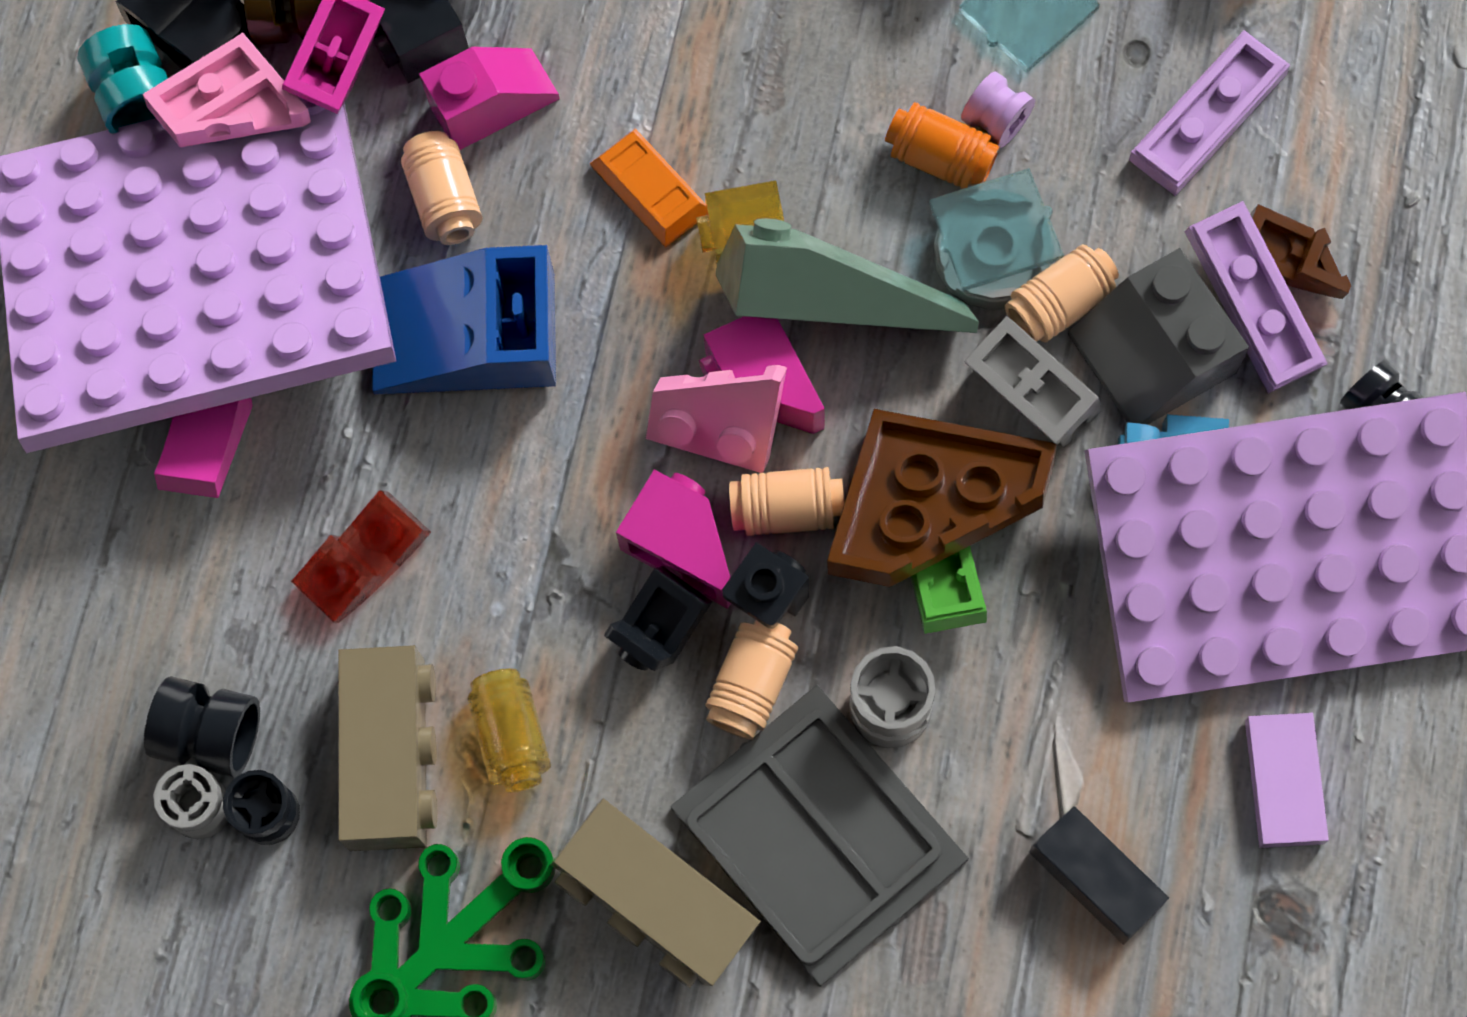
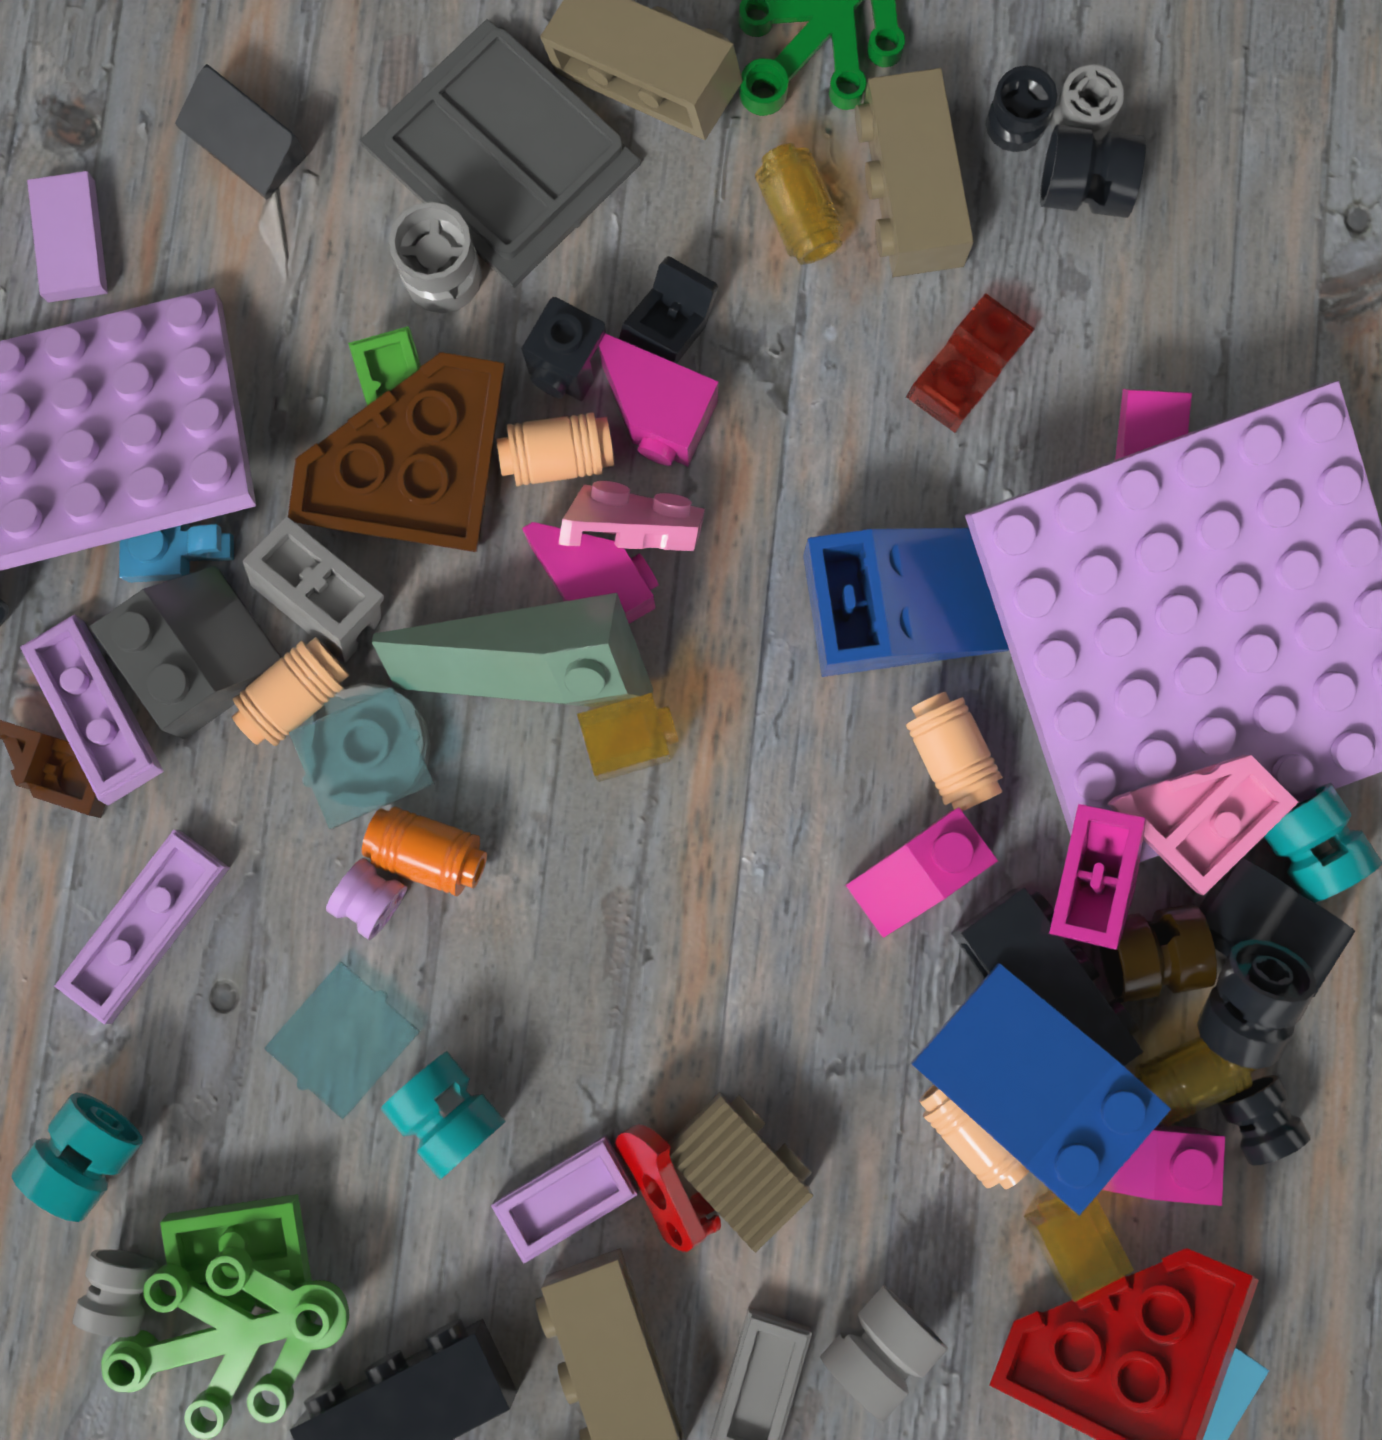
camera: 170 degrees right, 10 degrees up
(649, 187) = (734, 787): orange tile -> none
(751, 679) = (576, 263): light nougat head -> none

